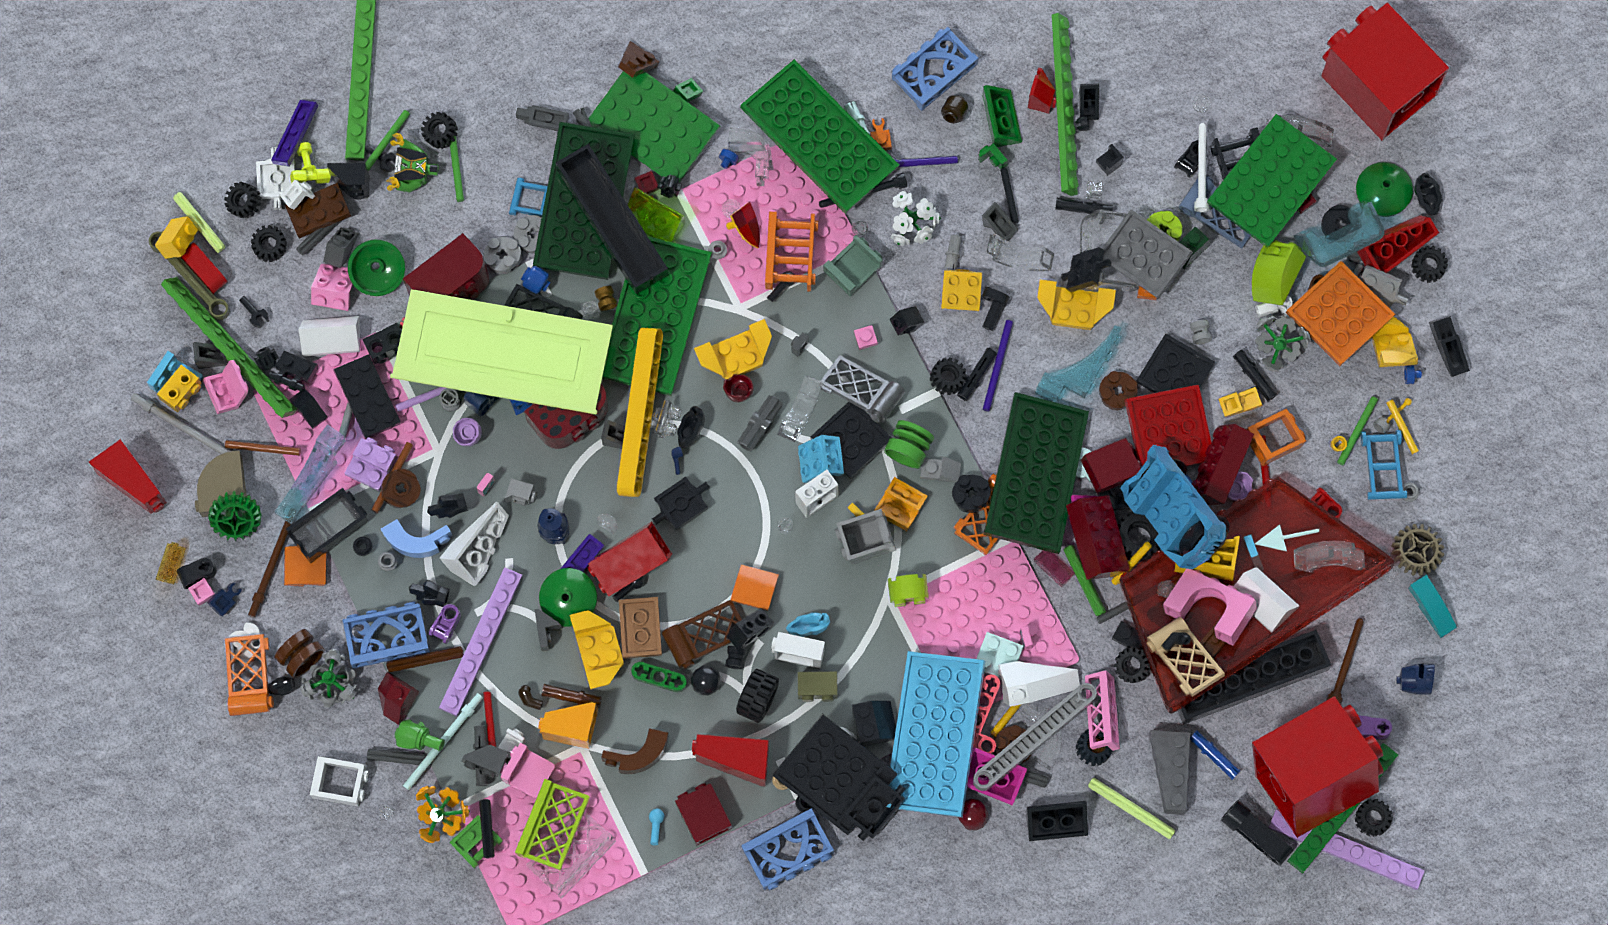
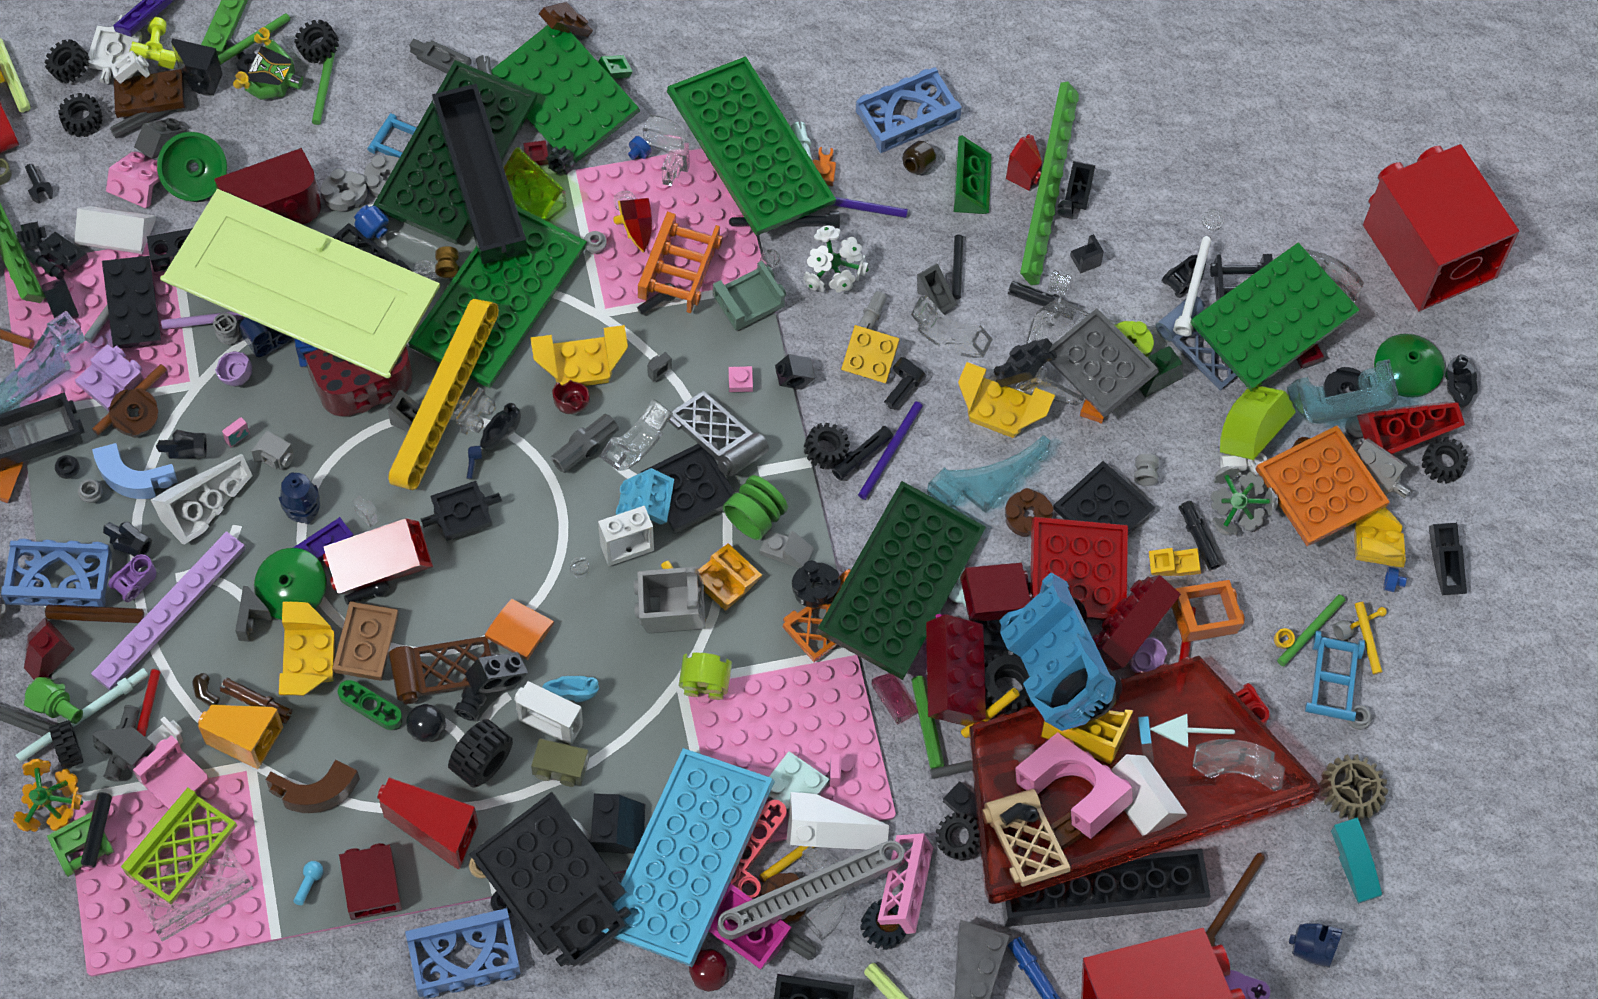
camera: 10 degrees right, 10 degrees down
(441, 769) = (66, 744): none -> black tyre
(995, 155) = (951, 216): green bracket -> none

